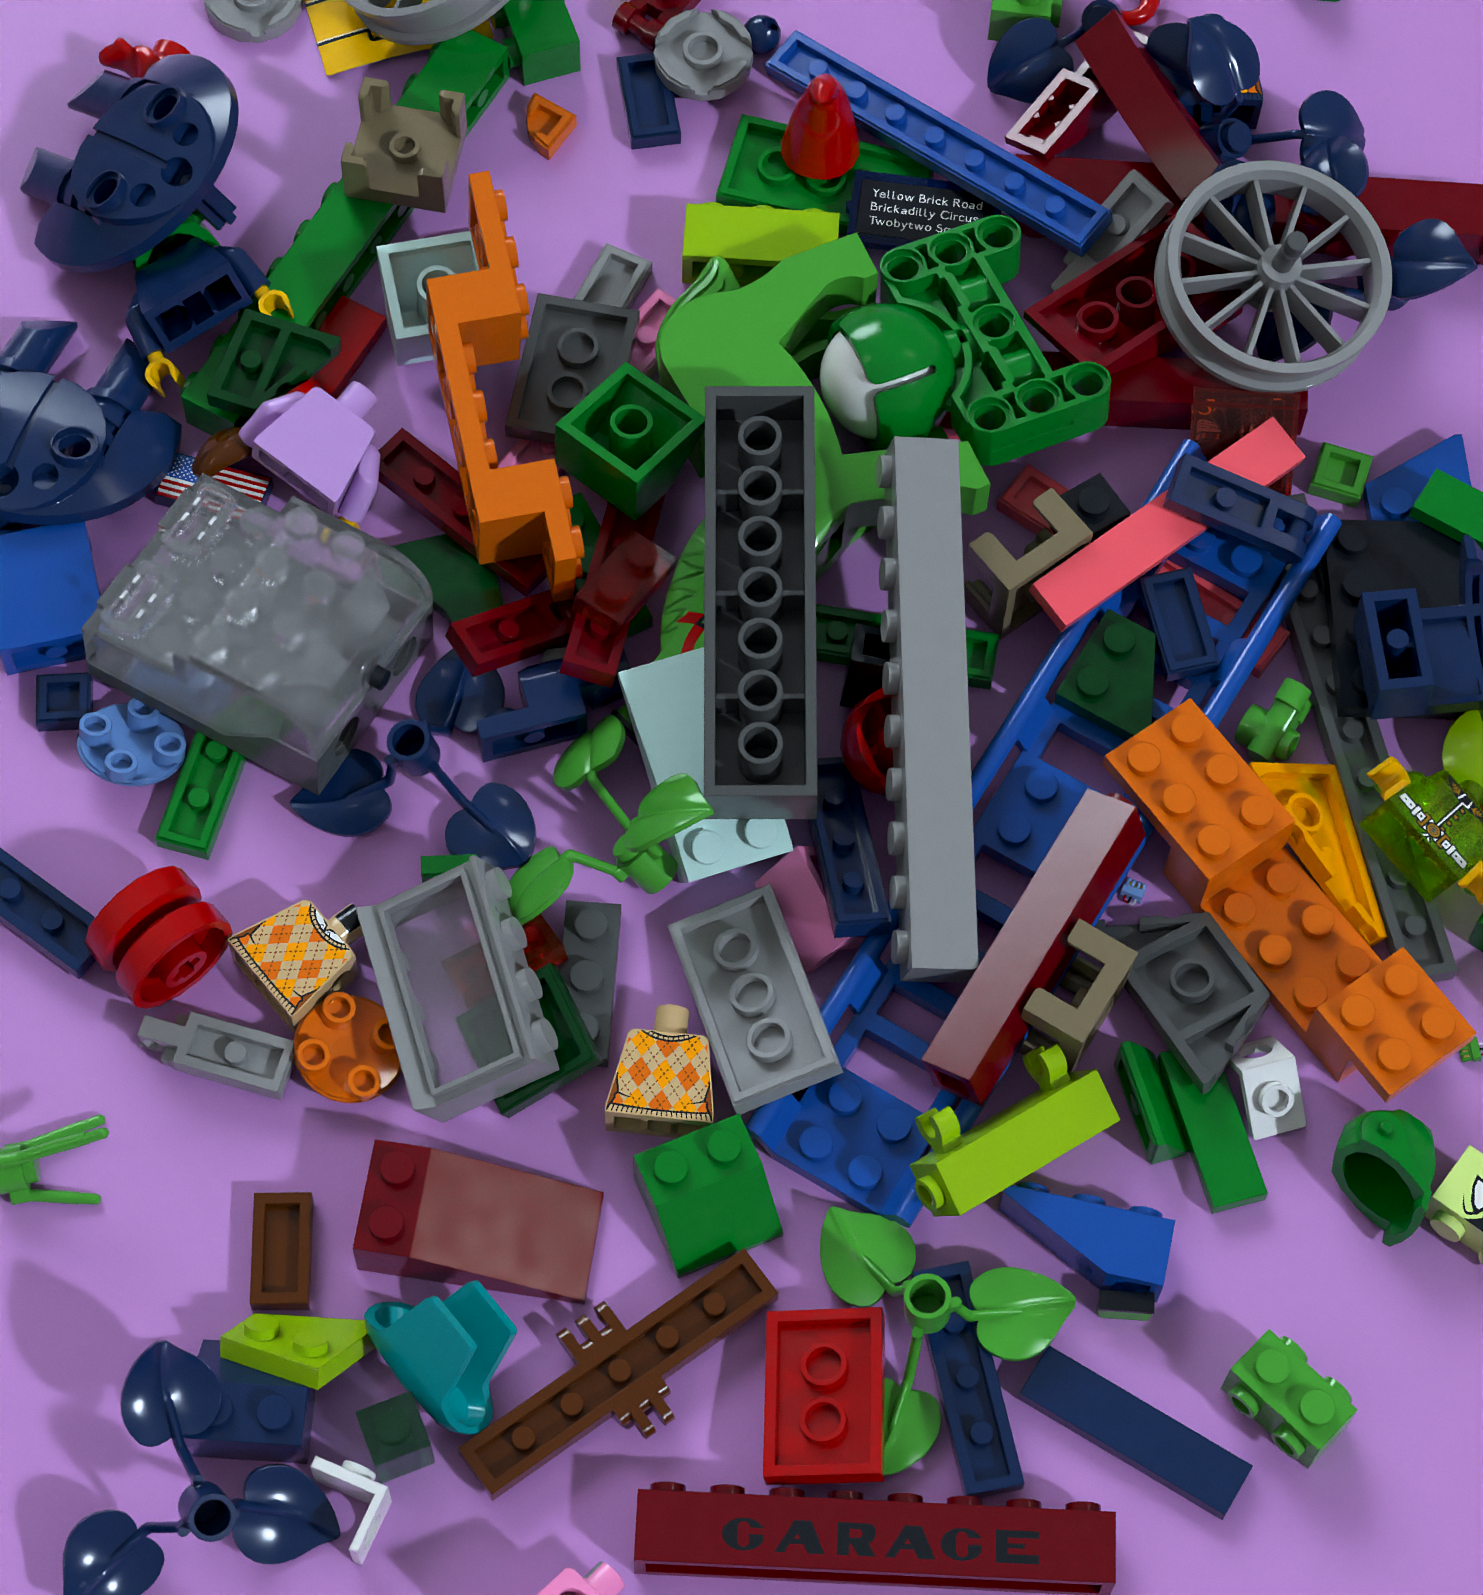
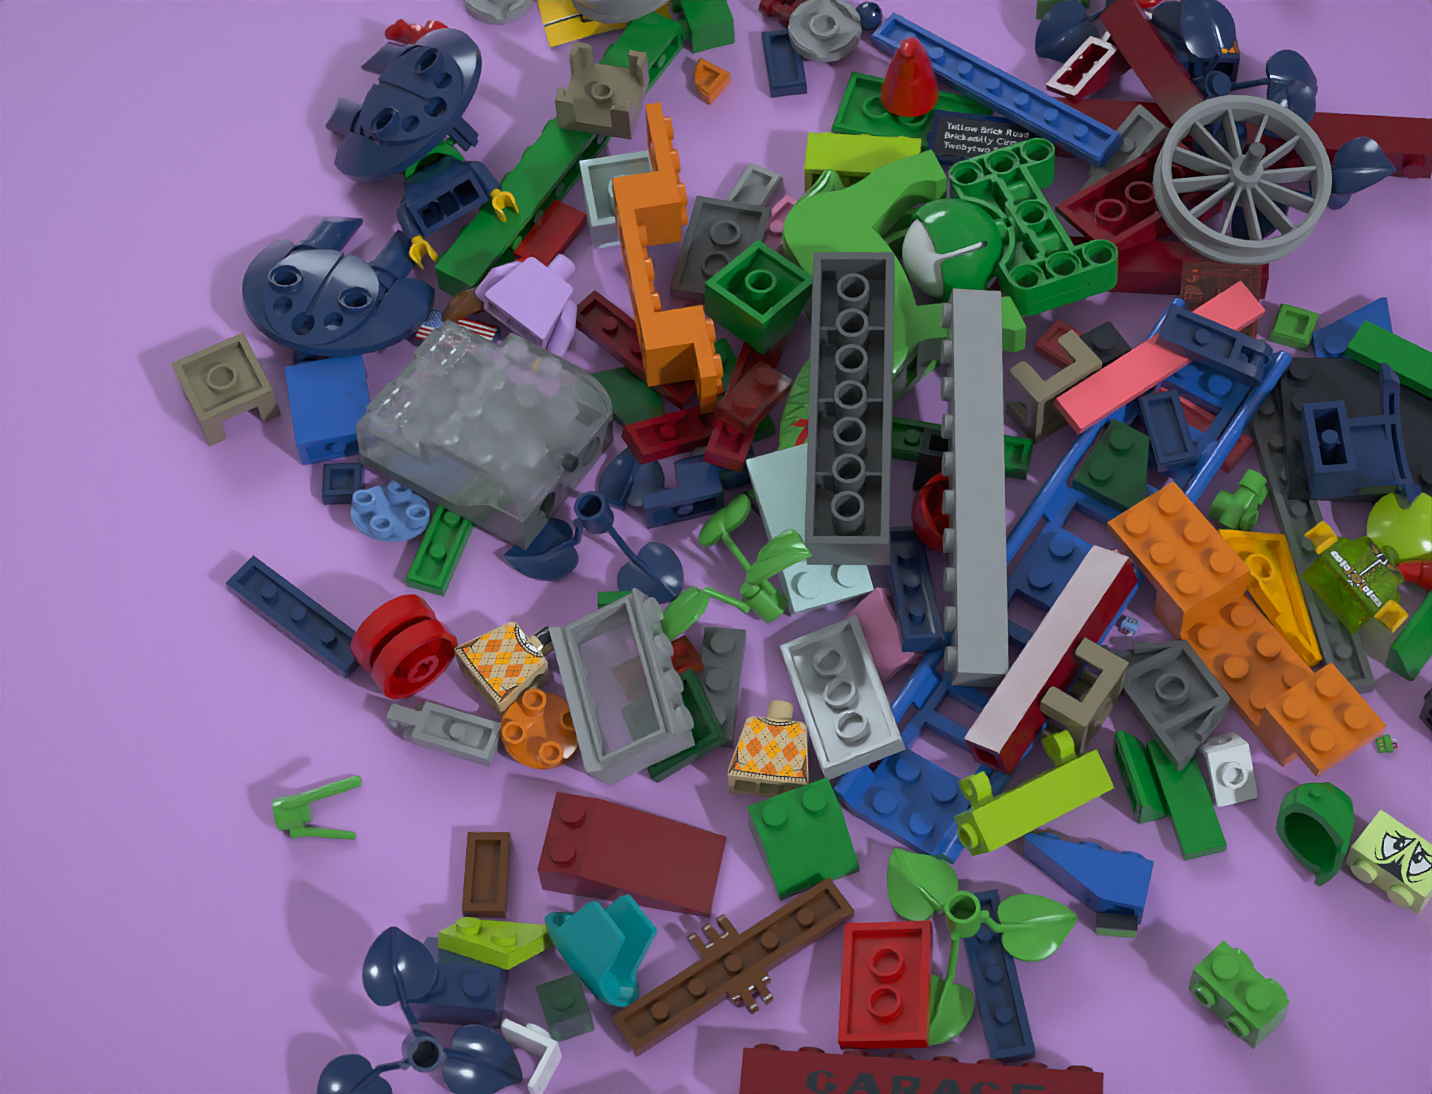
camera: 10 degrees right, 5 degrees down
(268, 361) = (496, 240): dark green wing -> none
(1135, 1432) = (1122, 1018): dark blue tile -> none

